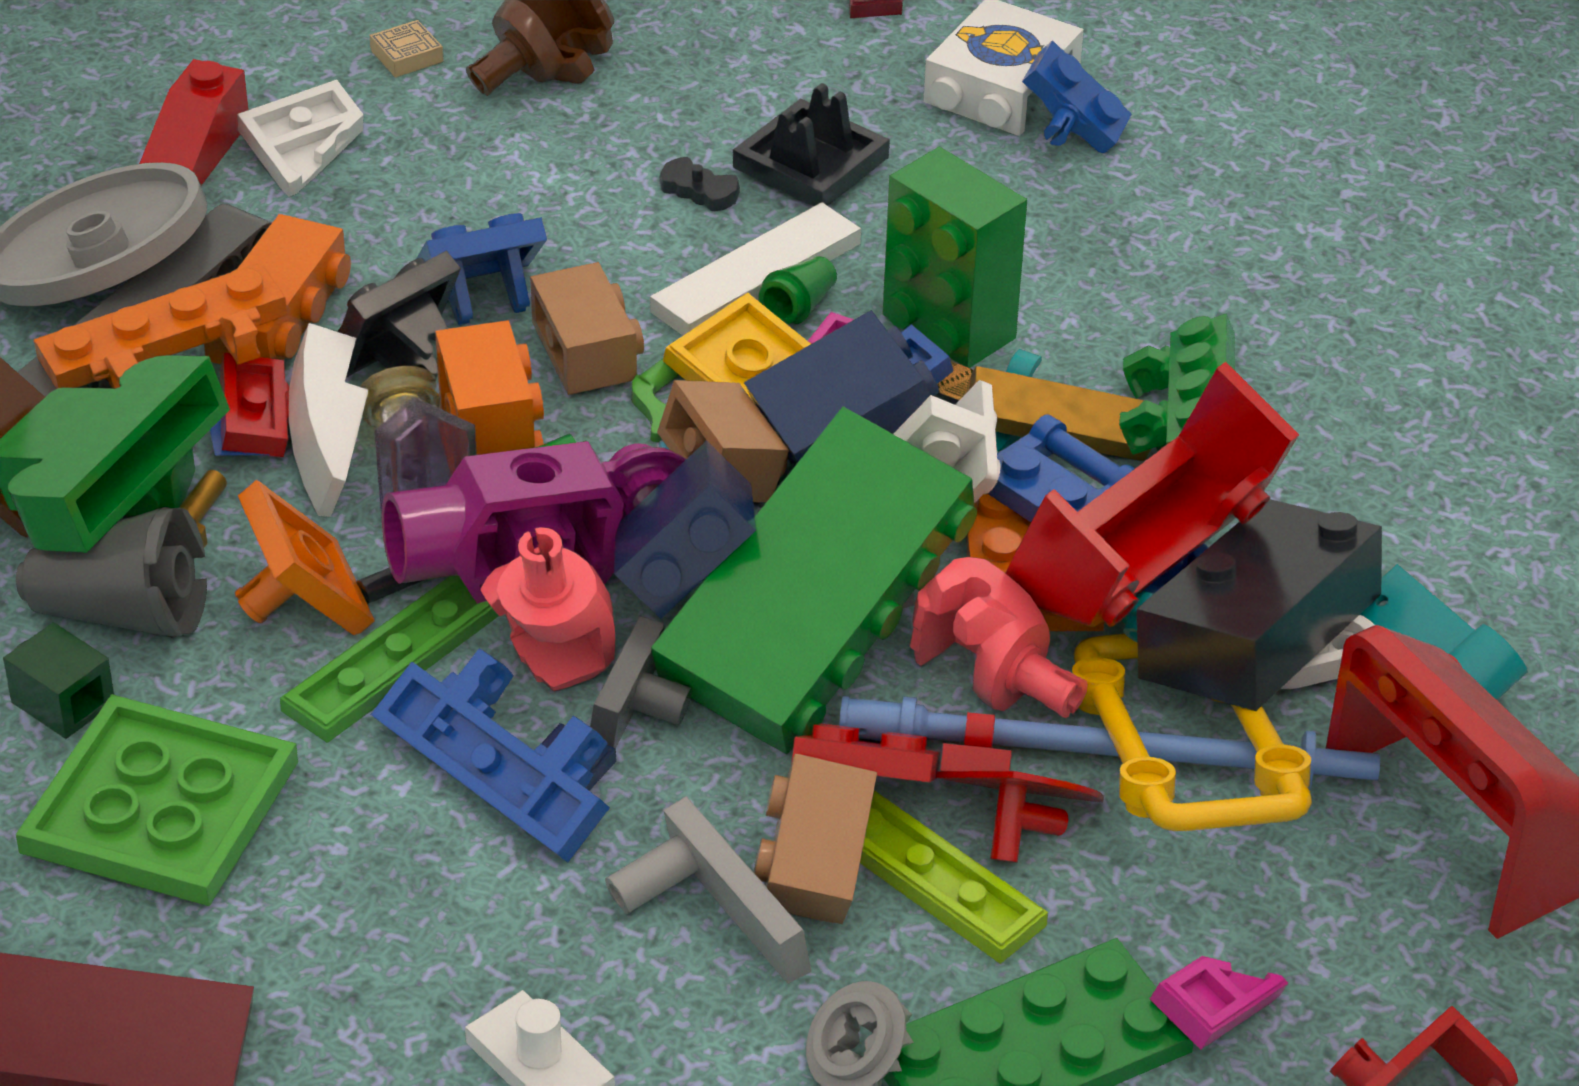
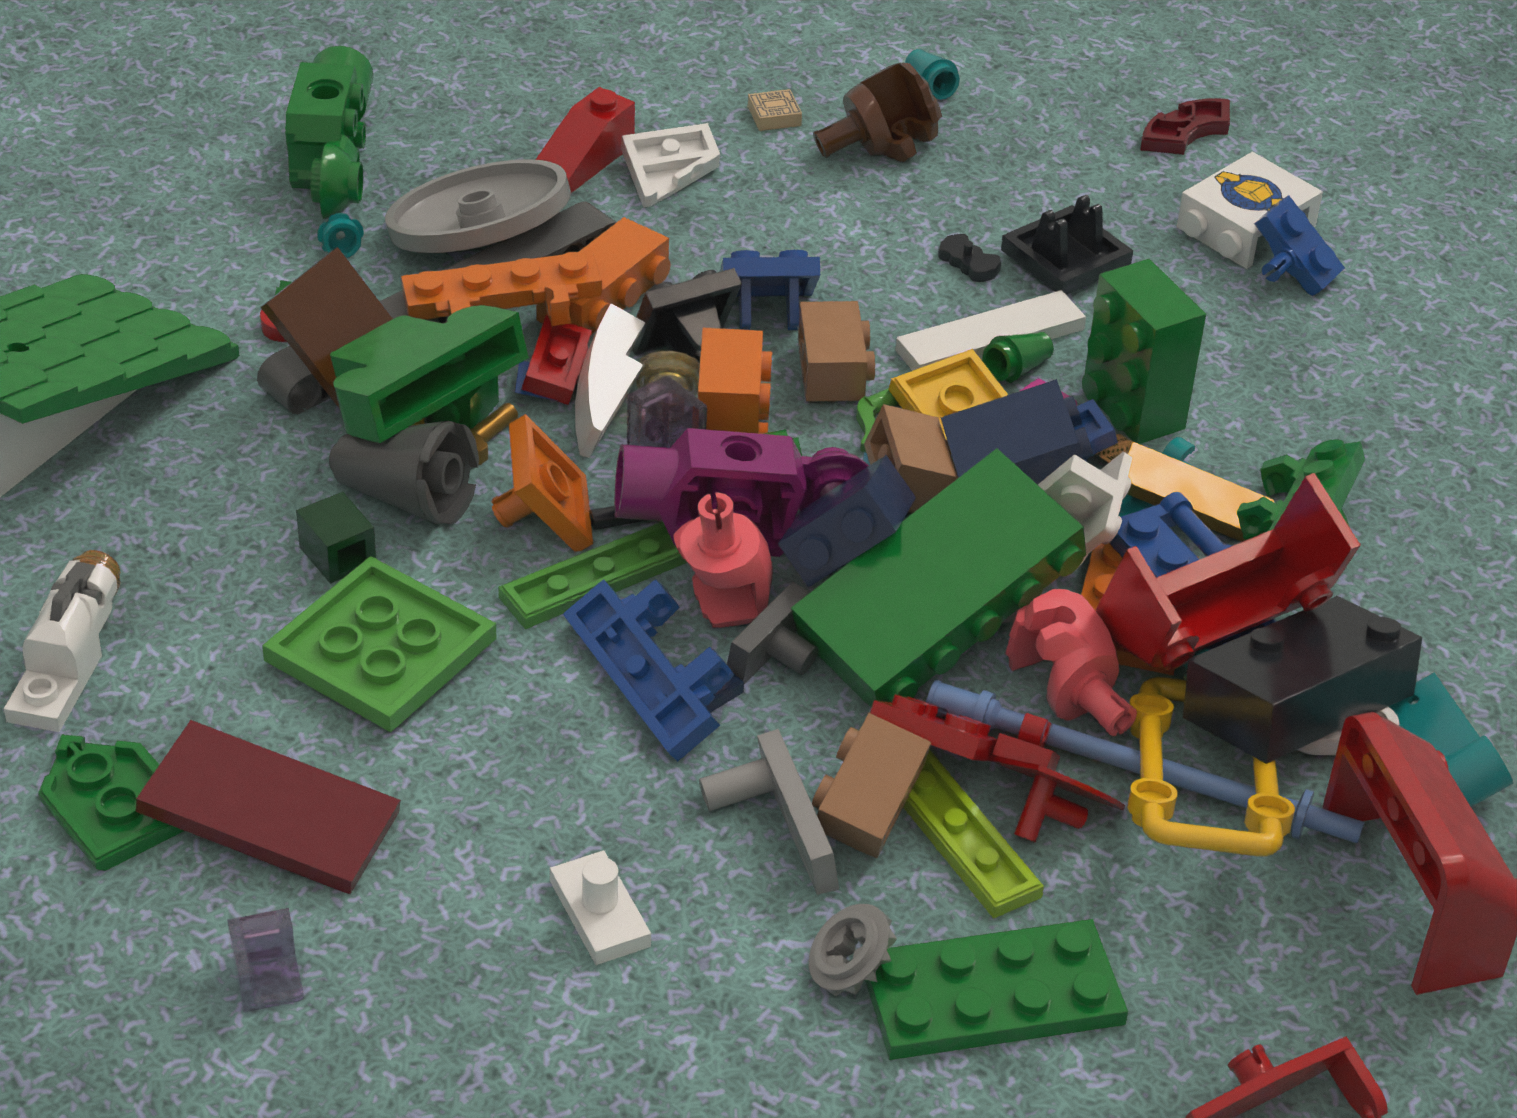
camera: 15 degrees right, 0 degrees up
(1212, 999) = (1152, 985): dark pink tile -> none

